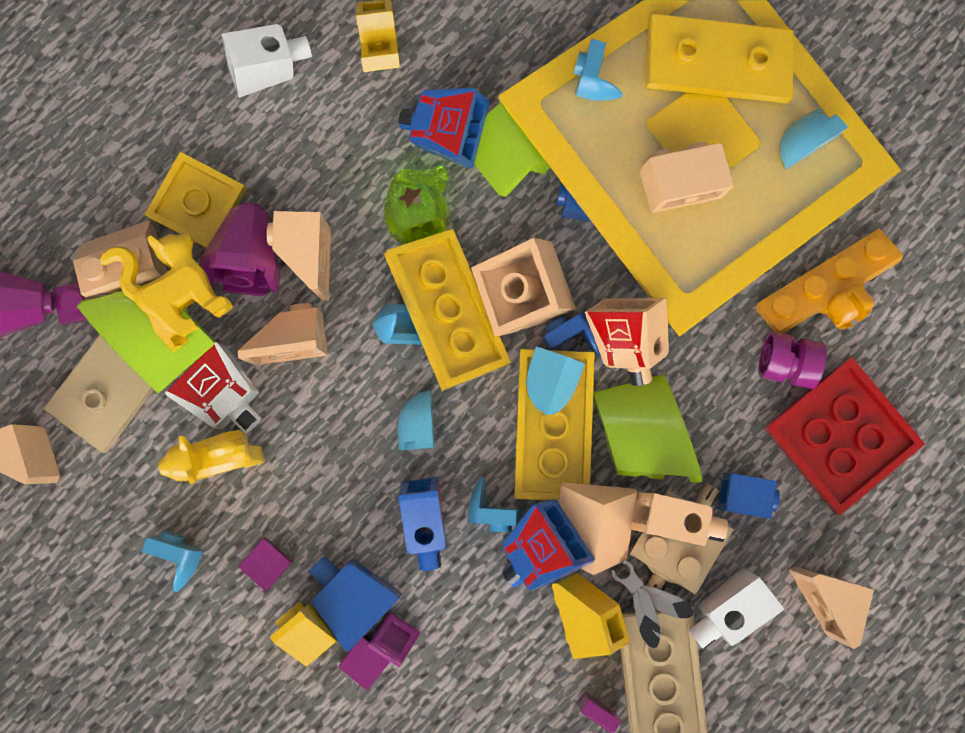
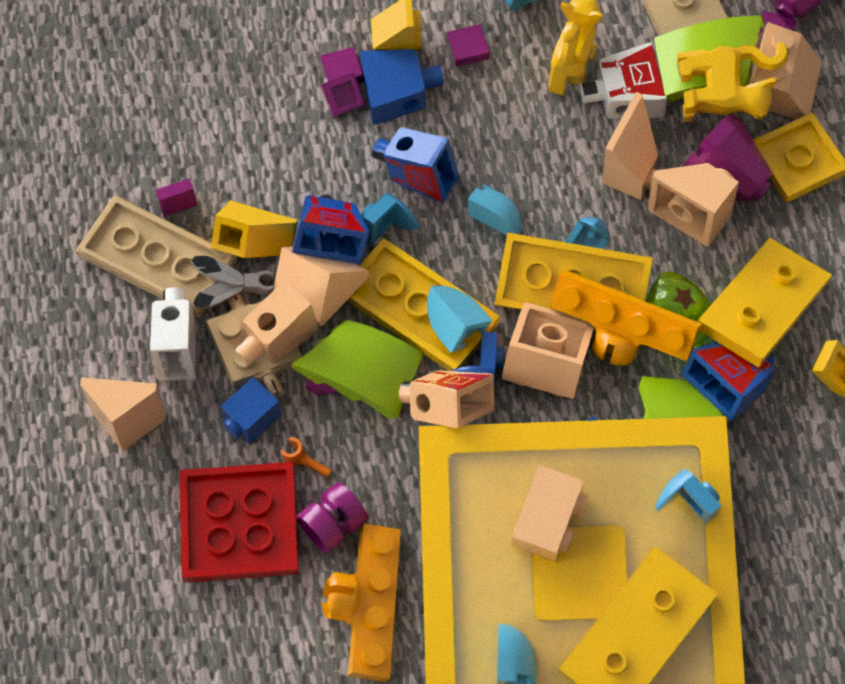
camera: 130 degrees right, 20 degrees down
(363, 140) = (763, 302): none -> yellow plate
(463, 236) = (623, 320): none -> light orange plate
(750, 424) = (300, 457): none -> orange hand

